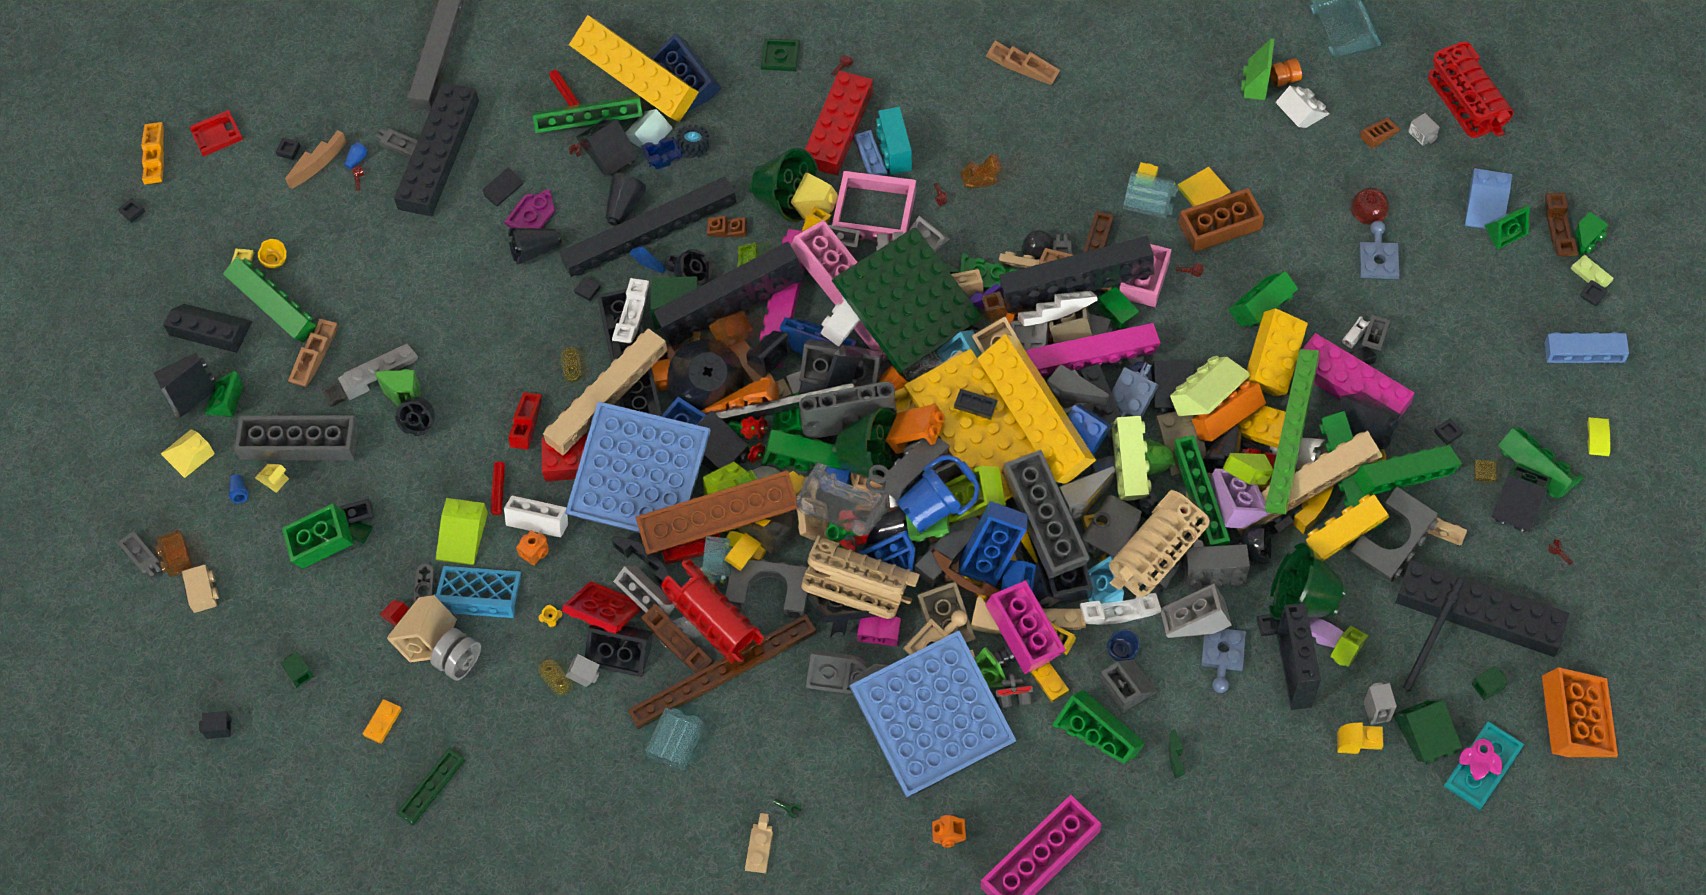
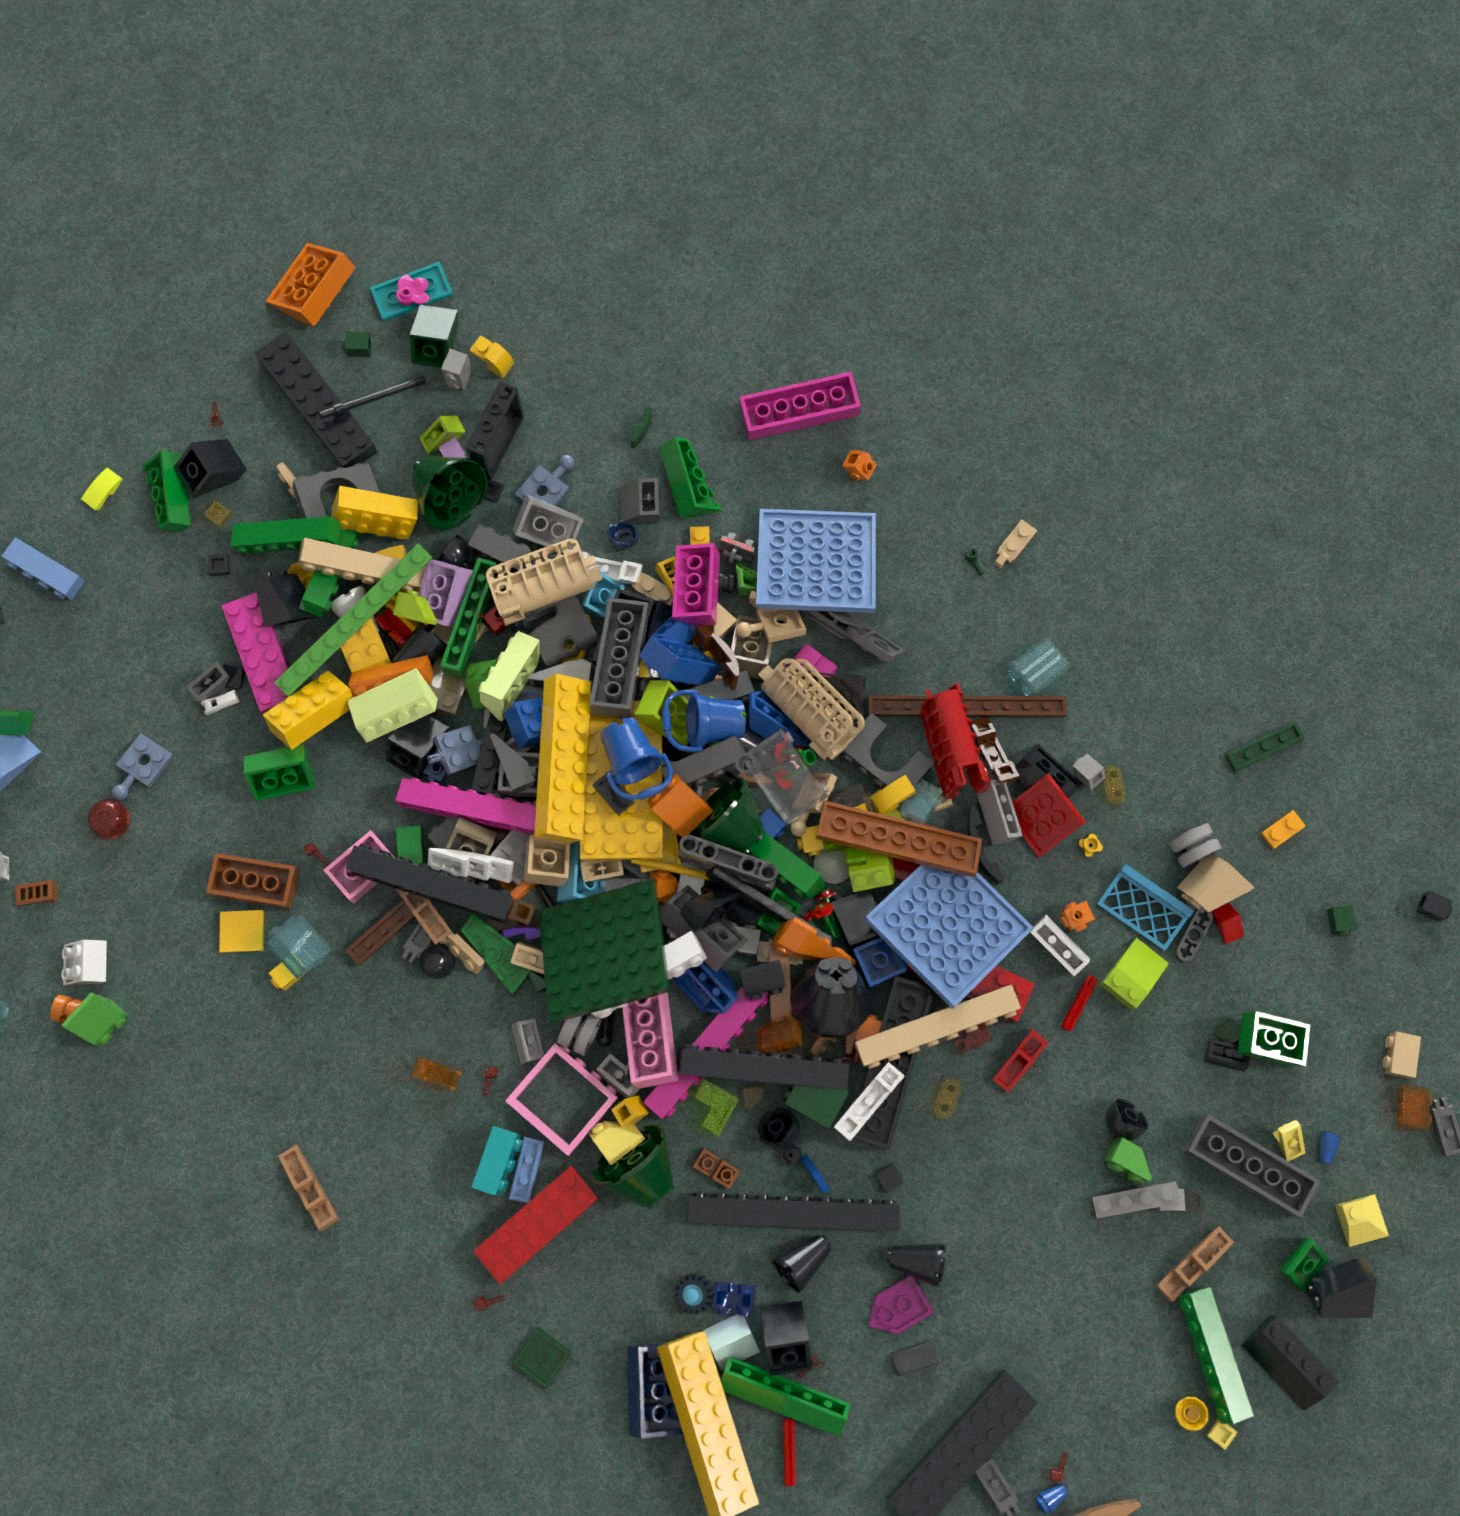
camera: 155 degrees left, 15 degrees up
(979, 430) = (632, 758): none -> blue piece

